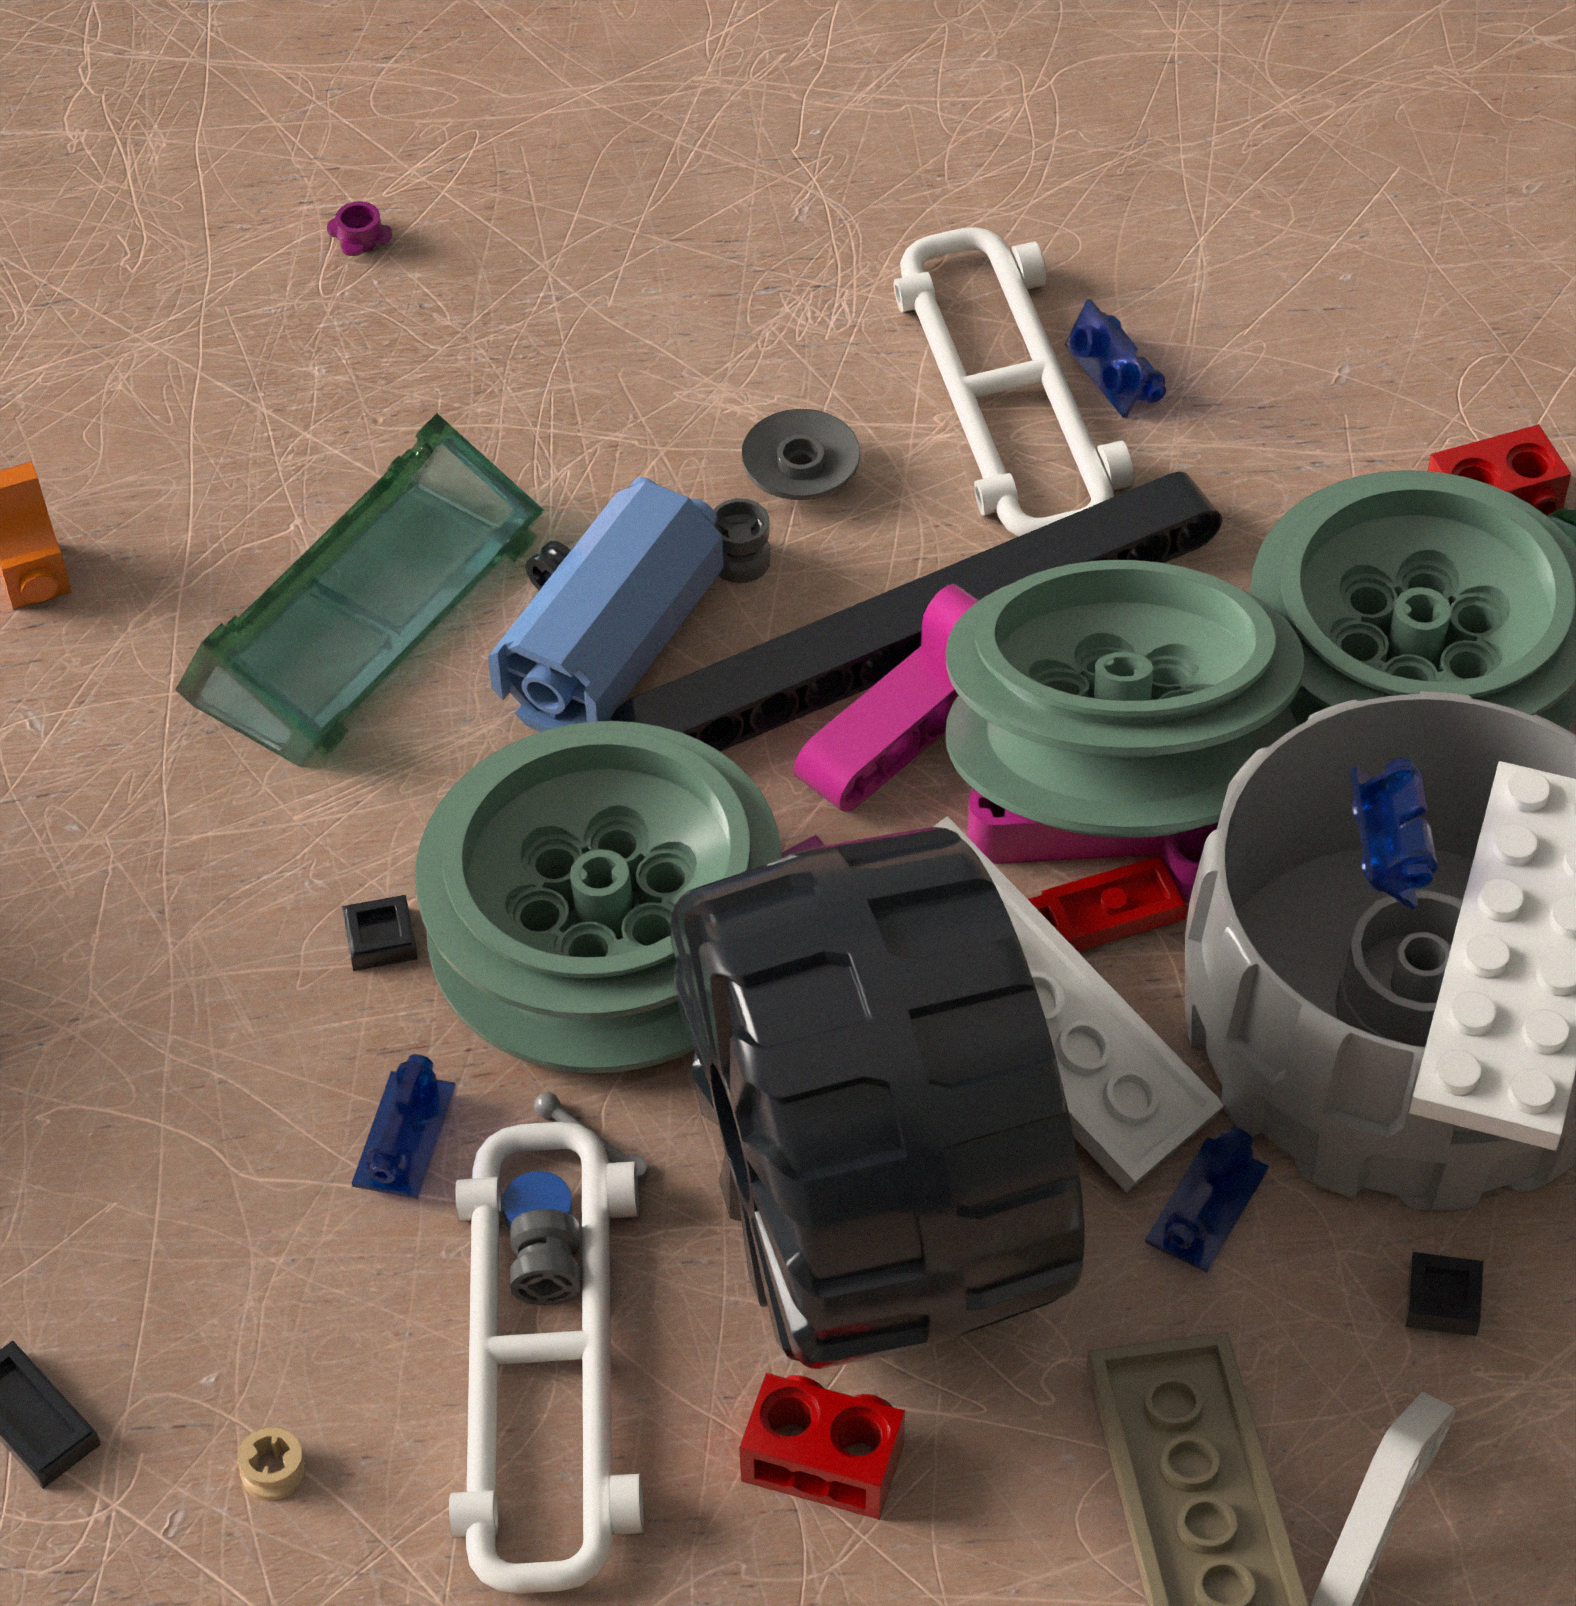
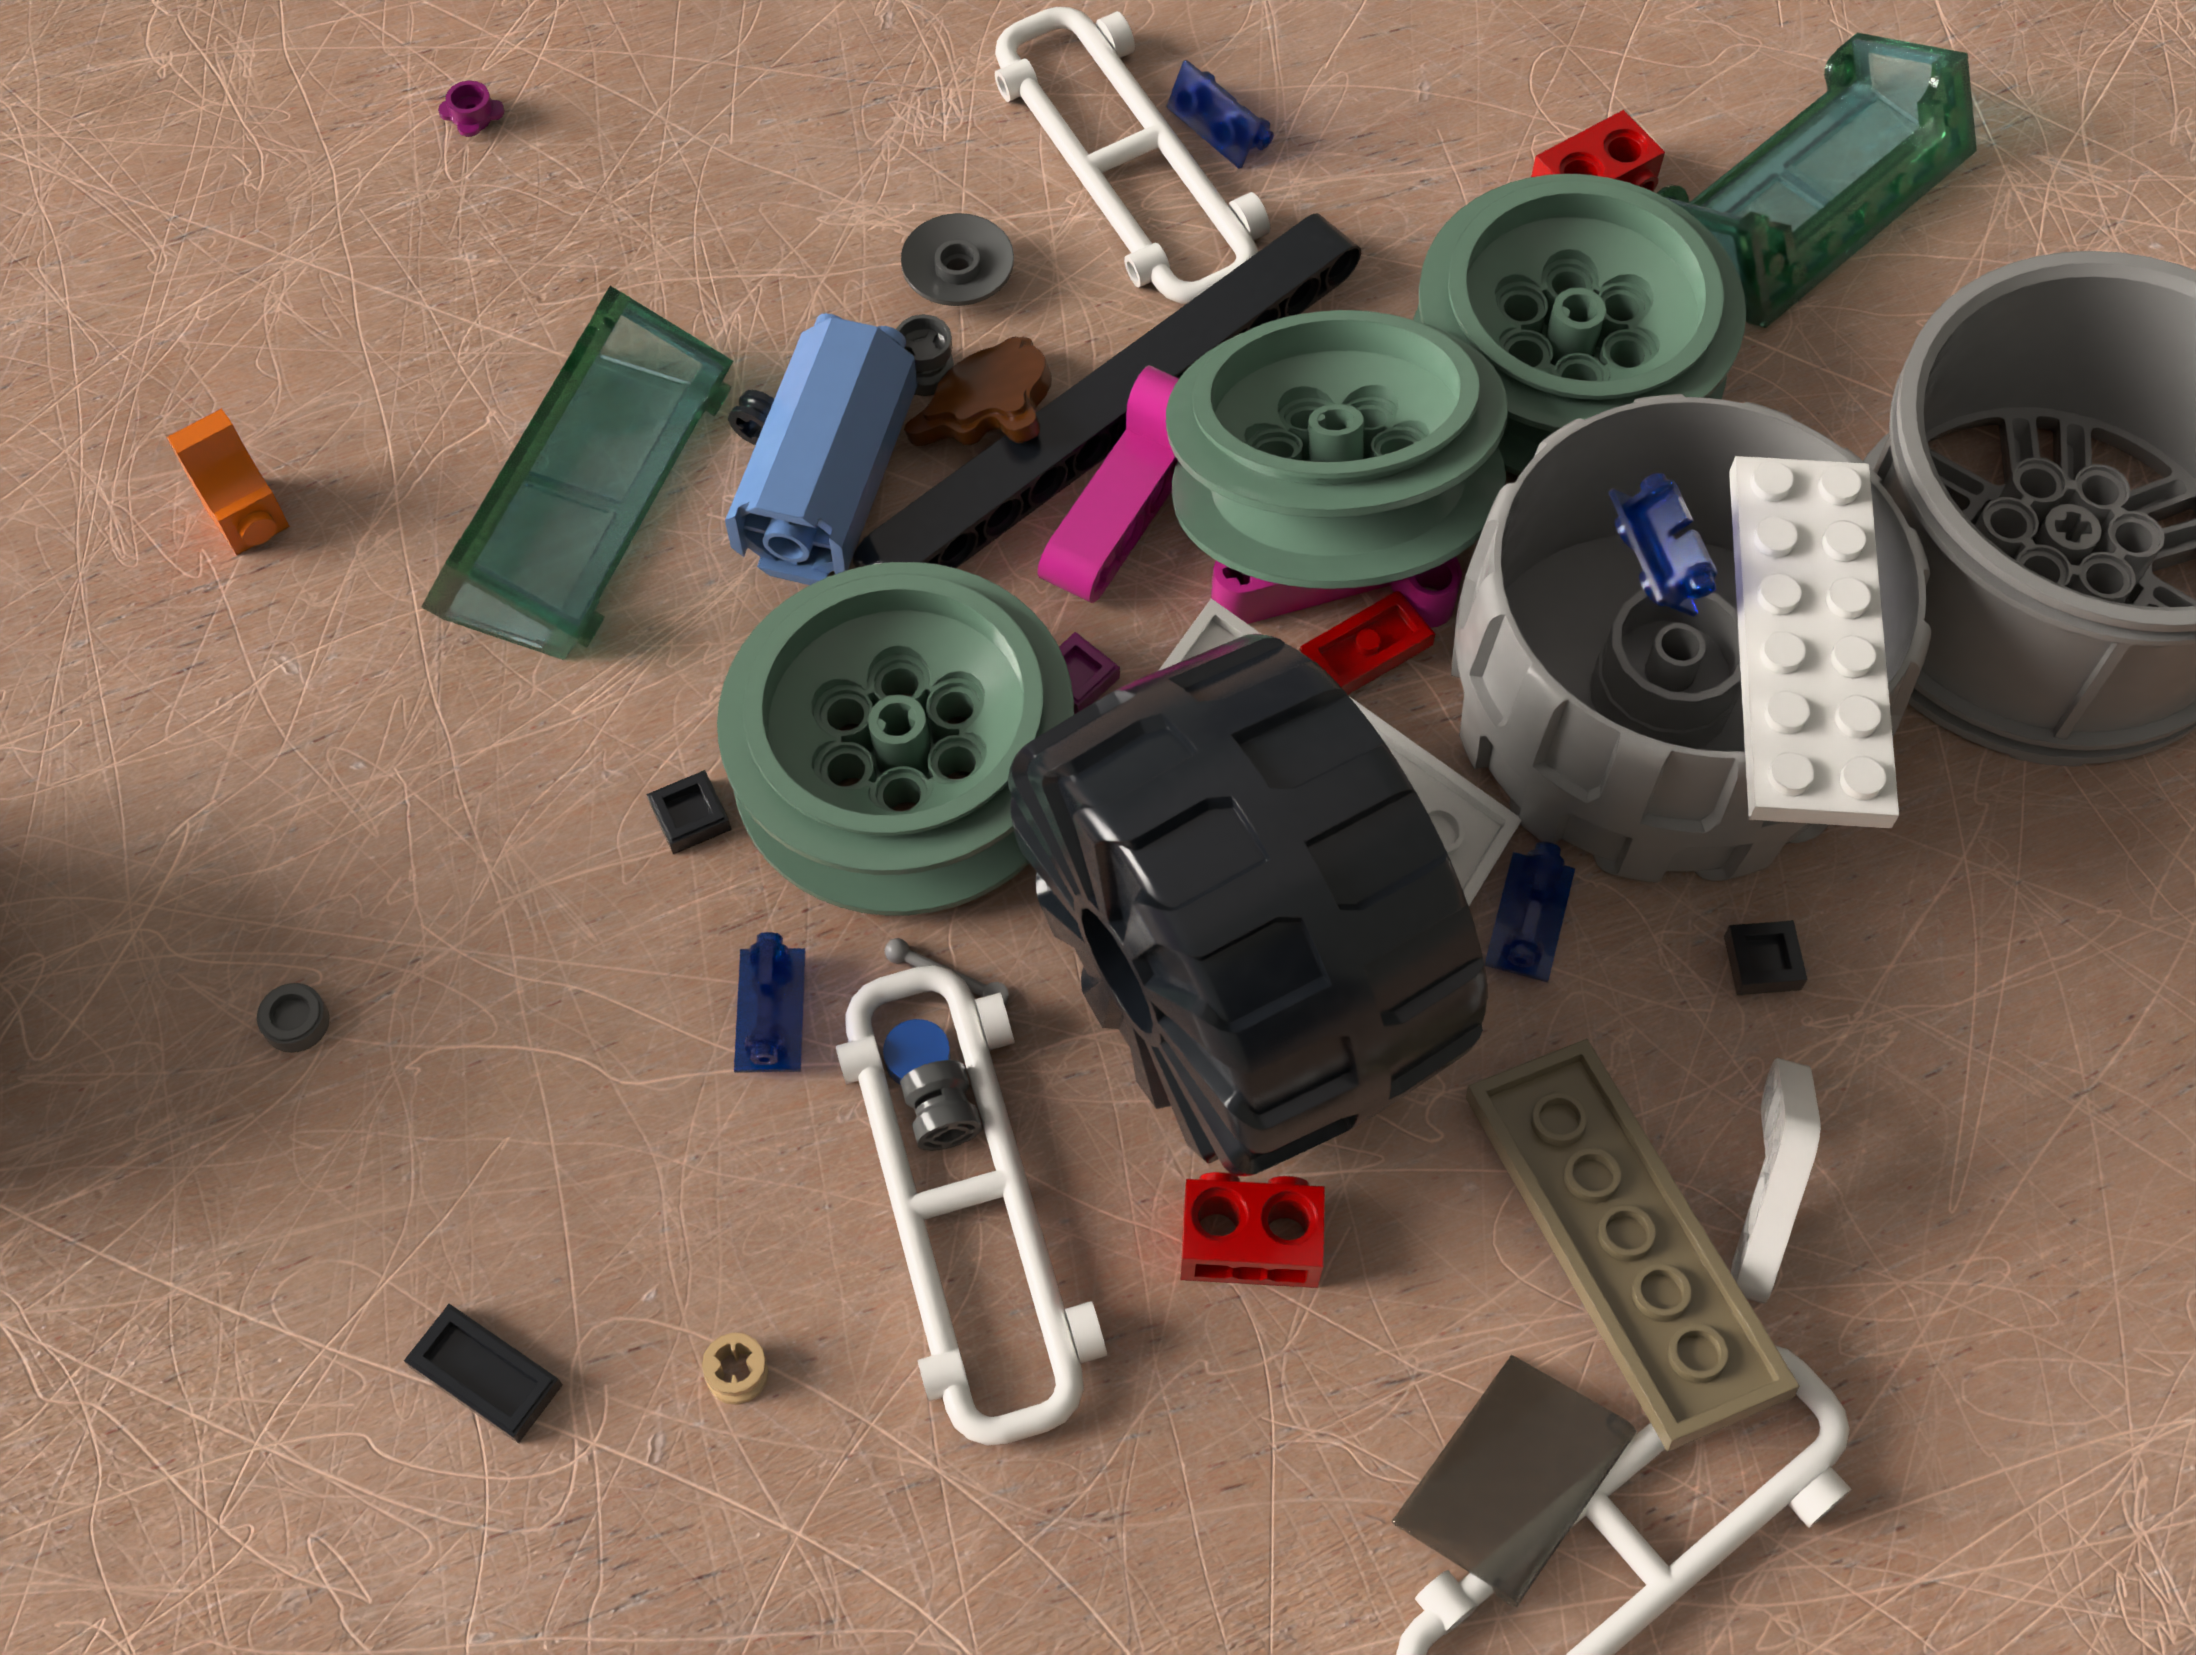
camera: 15 degrees left, 10 degrees up
(790, 587) = (986, 393): none -> reddish brown tile

